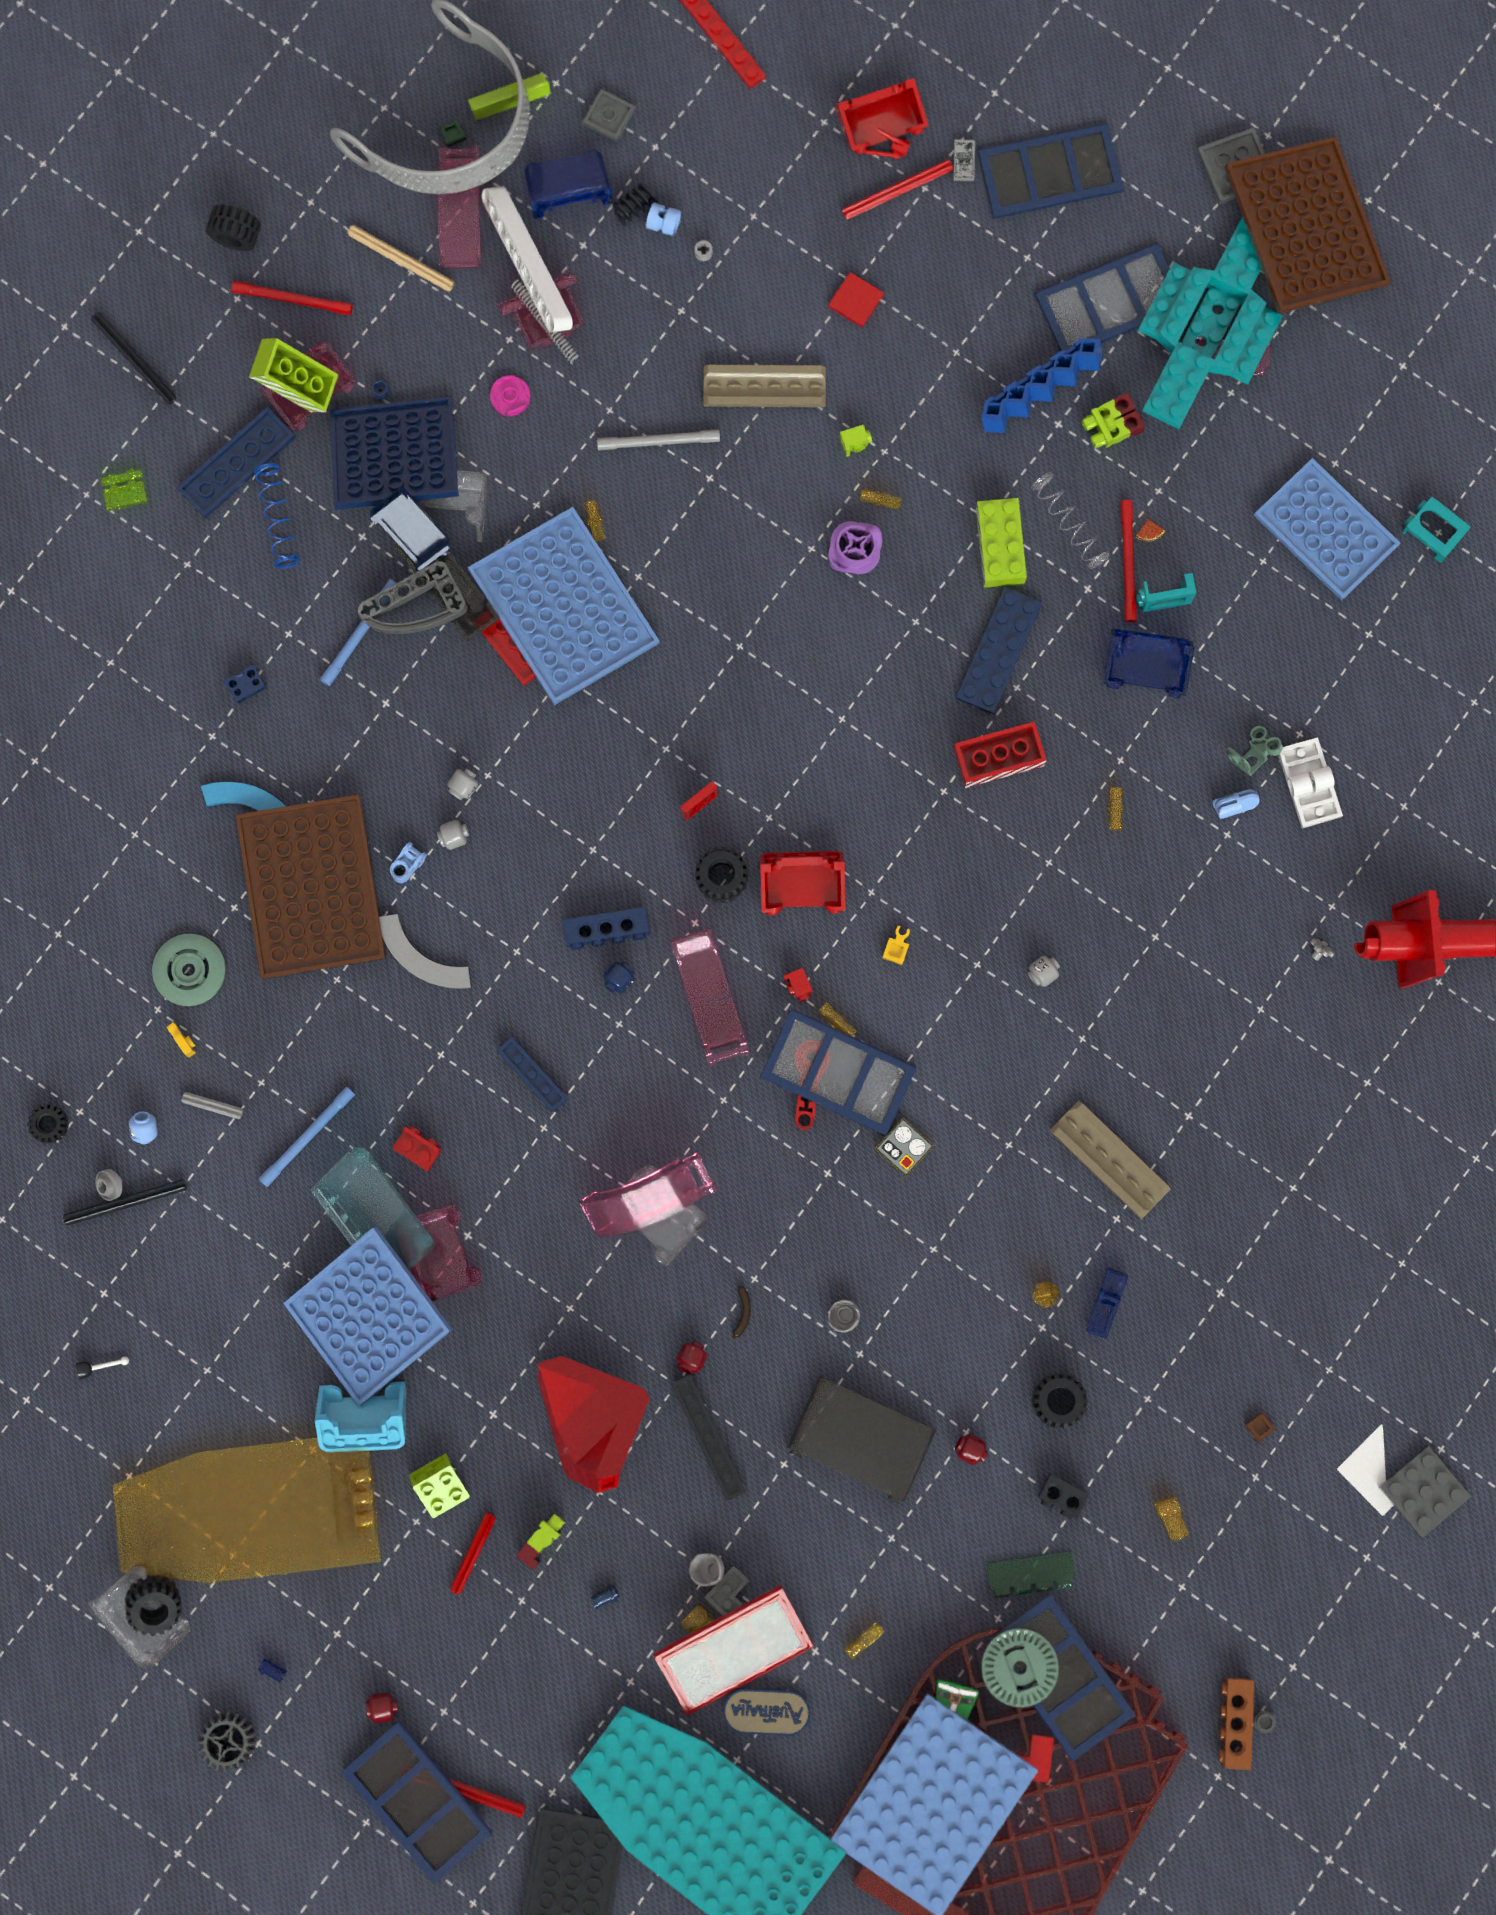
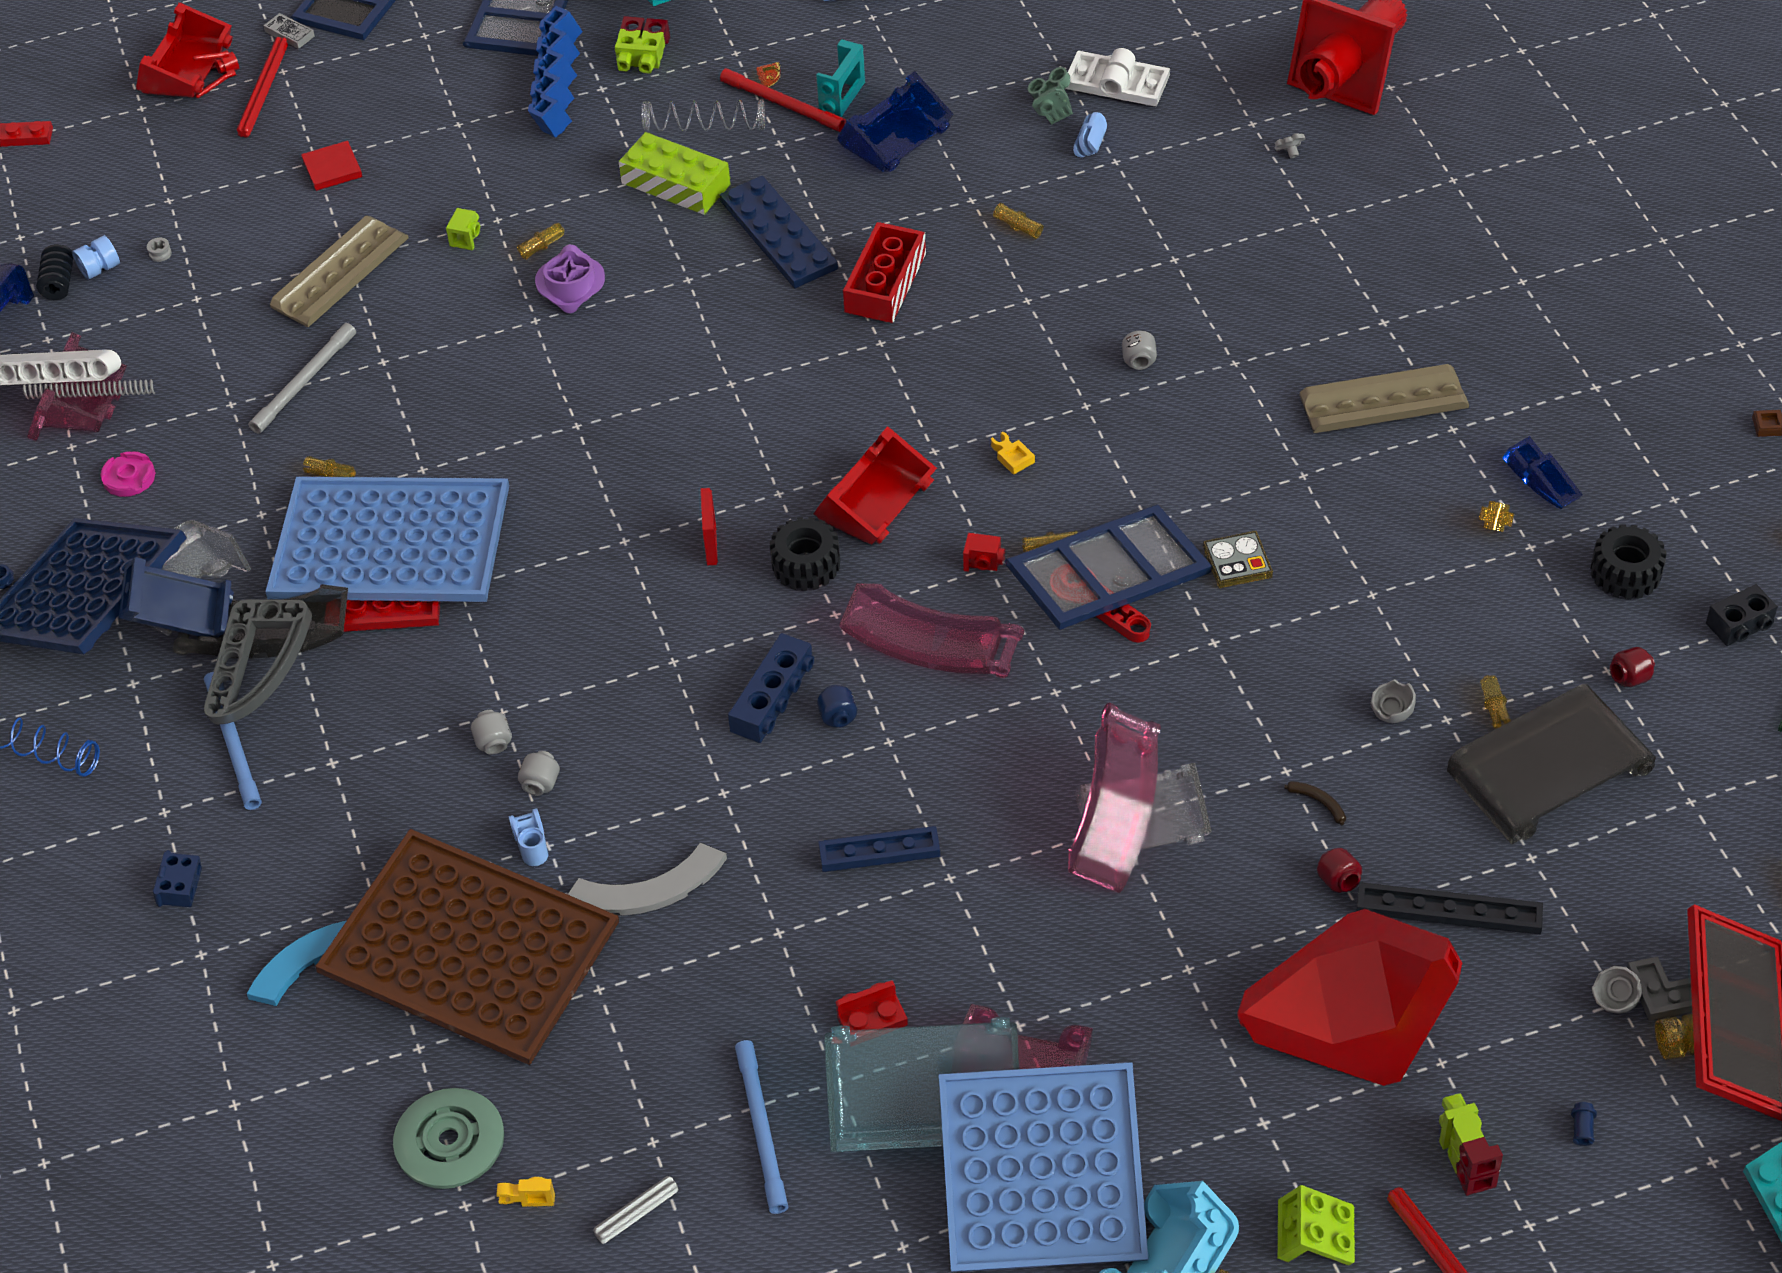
camera: 55 degrees left, 30 degrees down
(889, 1377) = (1494, 701): none -> clear yellow axle

